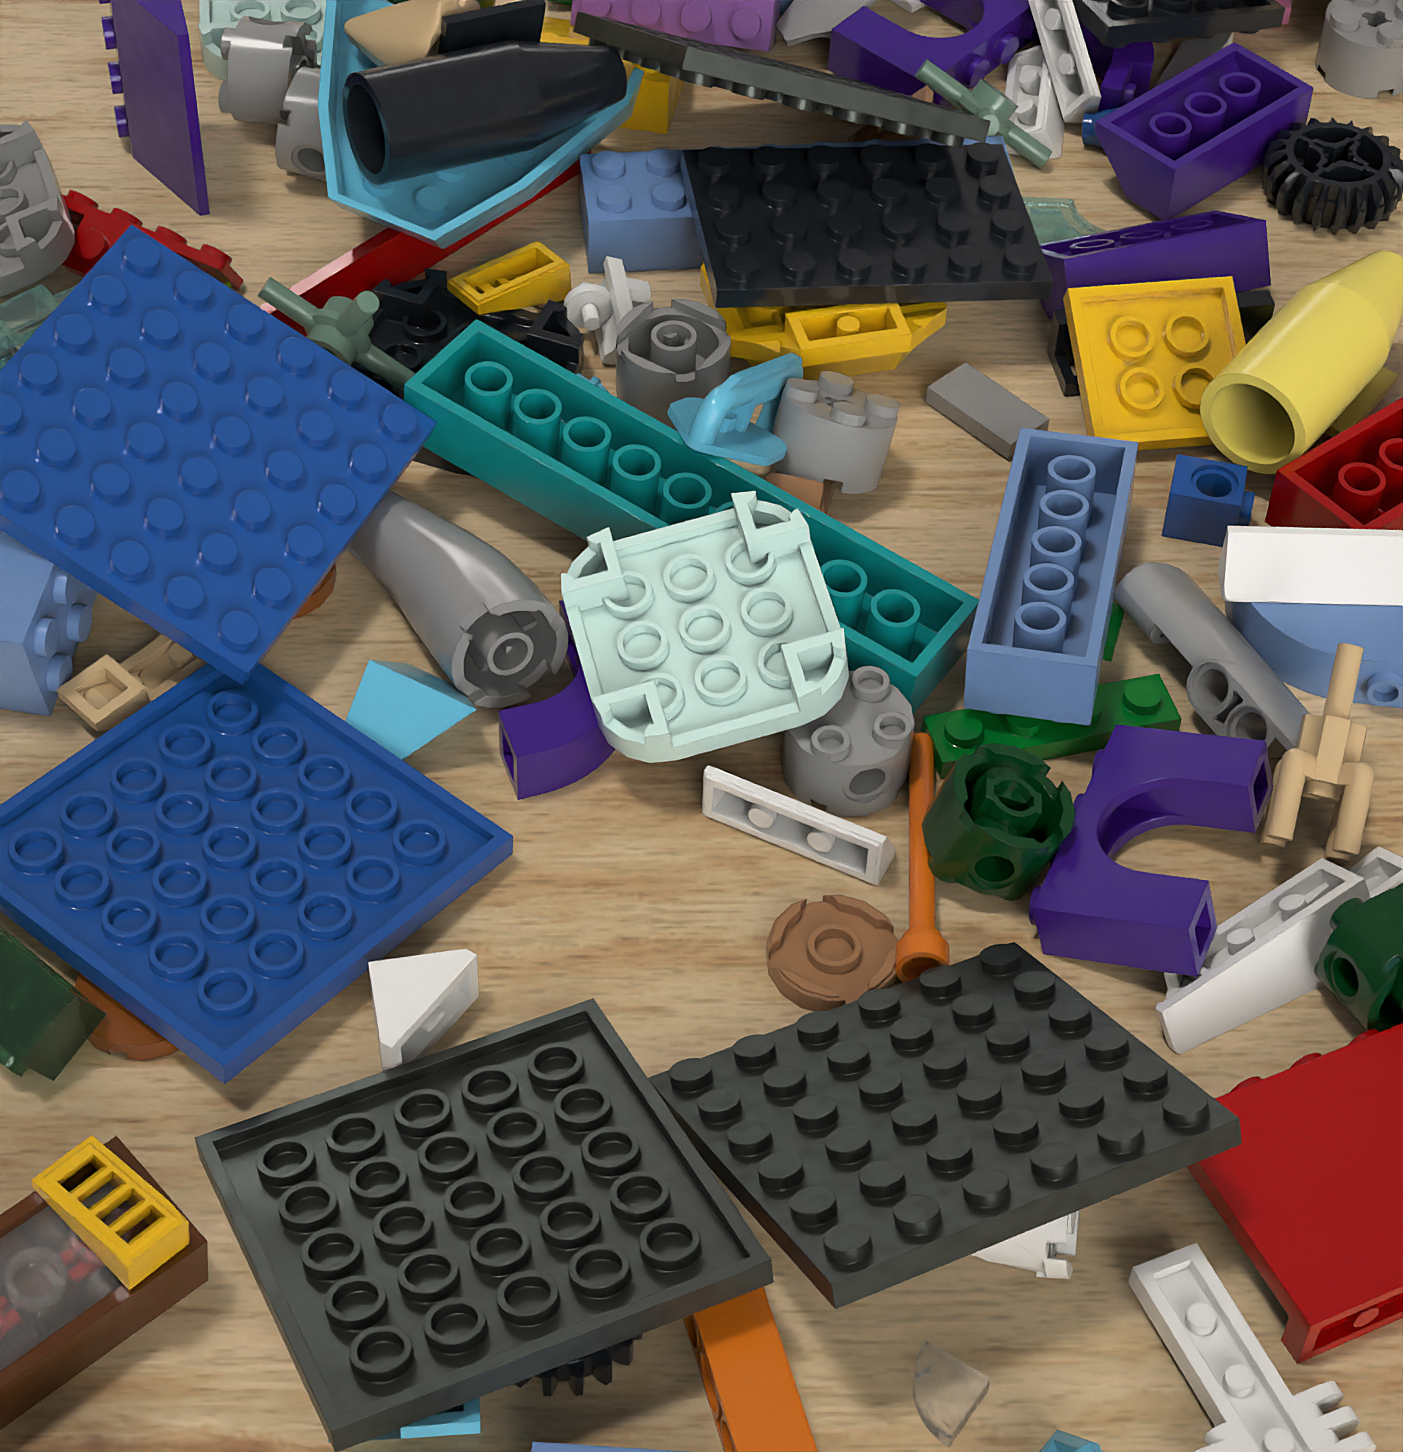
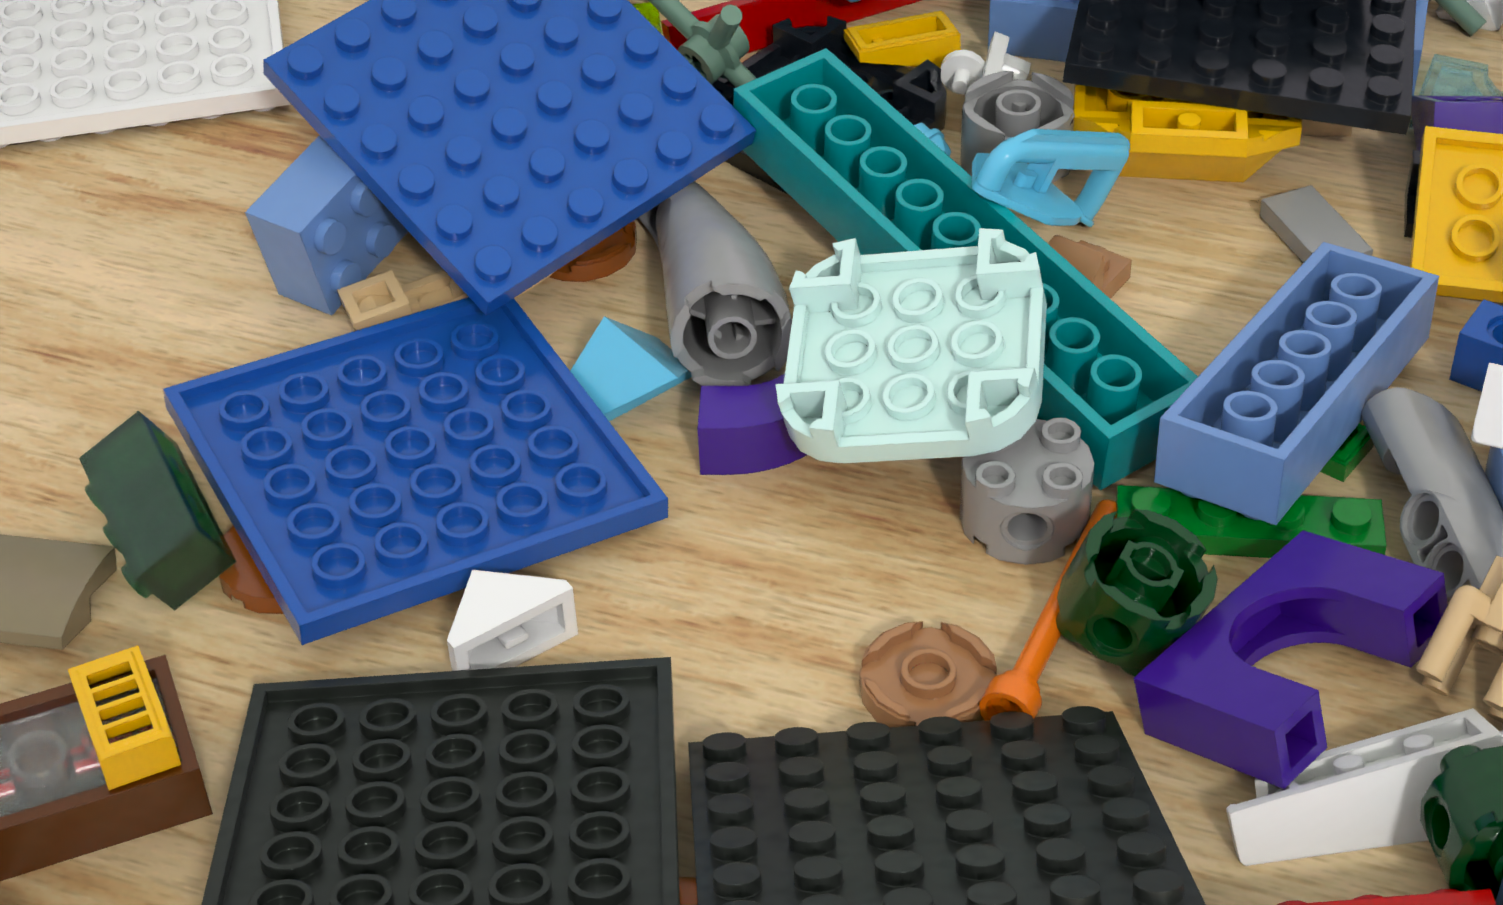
camera: 25 degrees right, 5 degrees down
(796, 826) = (946, 556): white slope -> none
(834, 431) = (1138, 214): light grey brick -> none

